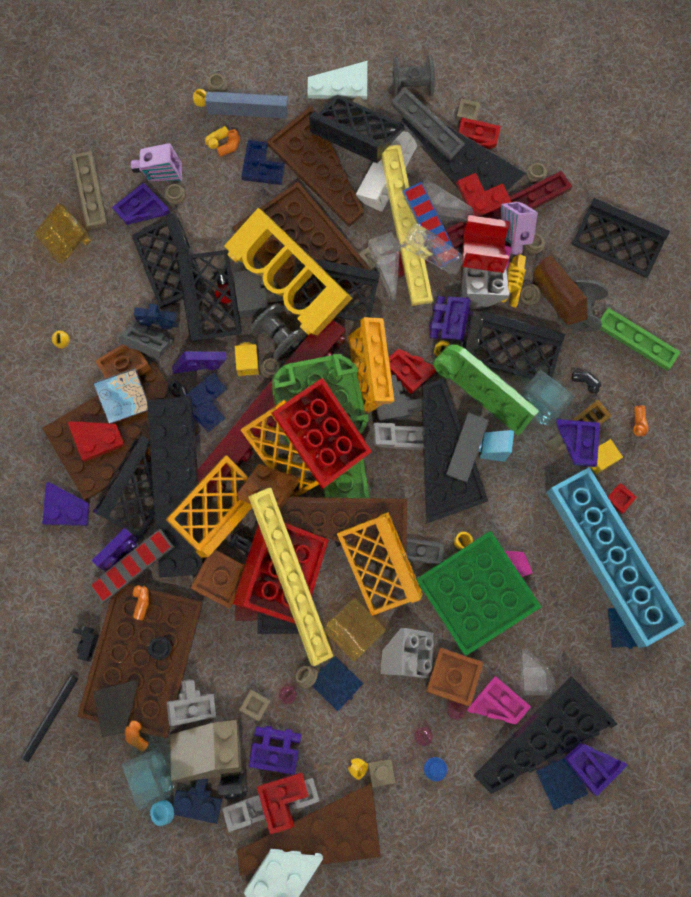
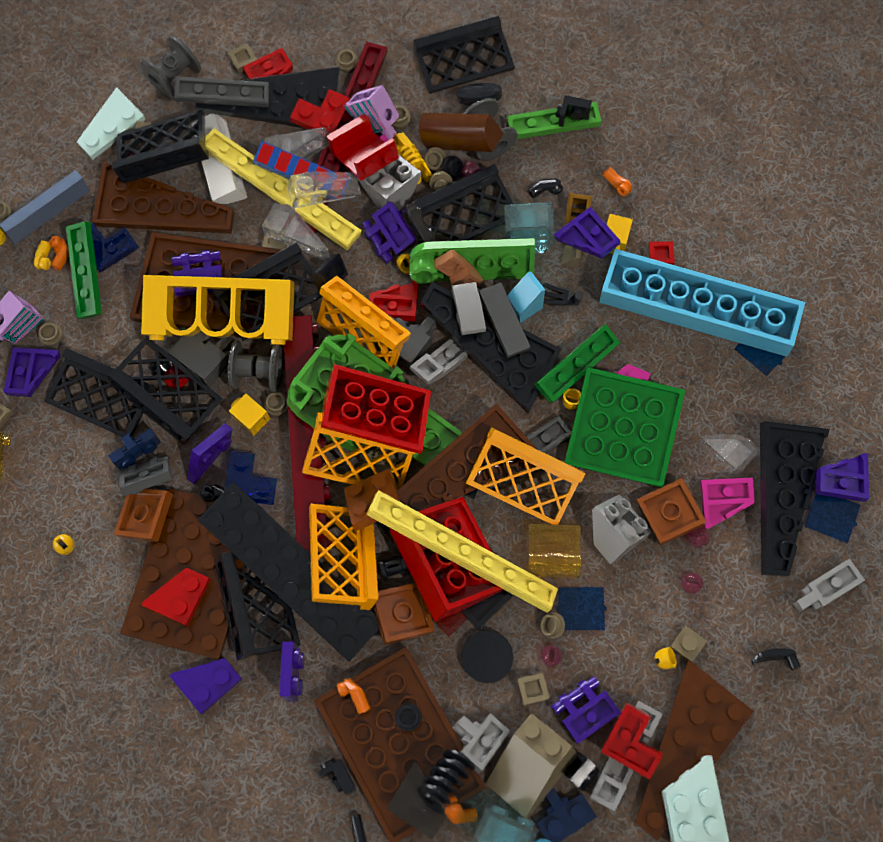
camera: 35 degrees left, 5 degrees down
(121, 395) = (169, 537): tile -> none
(131, 566) = (317, 672): tile -> none
(142, 709) = (443, 777): none -> black piece
(231, 169) = (83, 270): none -> green plate
(247, 656) = (487, 656): none -> black tile
(306, 242) = (206, 271): none -> dark purple plate
(388, 310) = (328, 270): none -> black tile
(435, 769) = (727, 599): blue plate -> none
(440, 844) = (779, 654): none -> black piece
(449, 418) = (469, 308): none -> light grey slope
(470, 389) = (457, 269): none -> nougat slope
(489, 520) = (576, 363): none -> green plate
(511, 827) = (830, 586): none -> light grey hinge
(518, 312) = (440, 180): none -> dark tan plate
(527, 470) = (566, 299): none -> black piece
(536, 310) = (453, 166): none -> black plate
(546, 322) = (470, 168): none -> clear pink hinge
(604, 274) = (475, 92): none -> black tile
(659, 343) = (573, 107): none -> black bracket

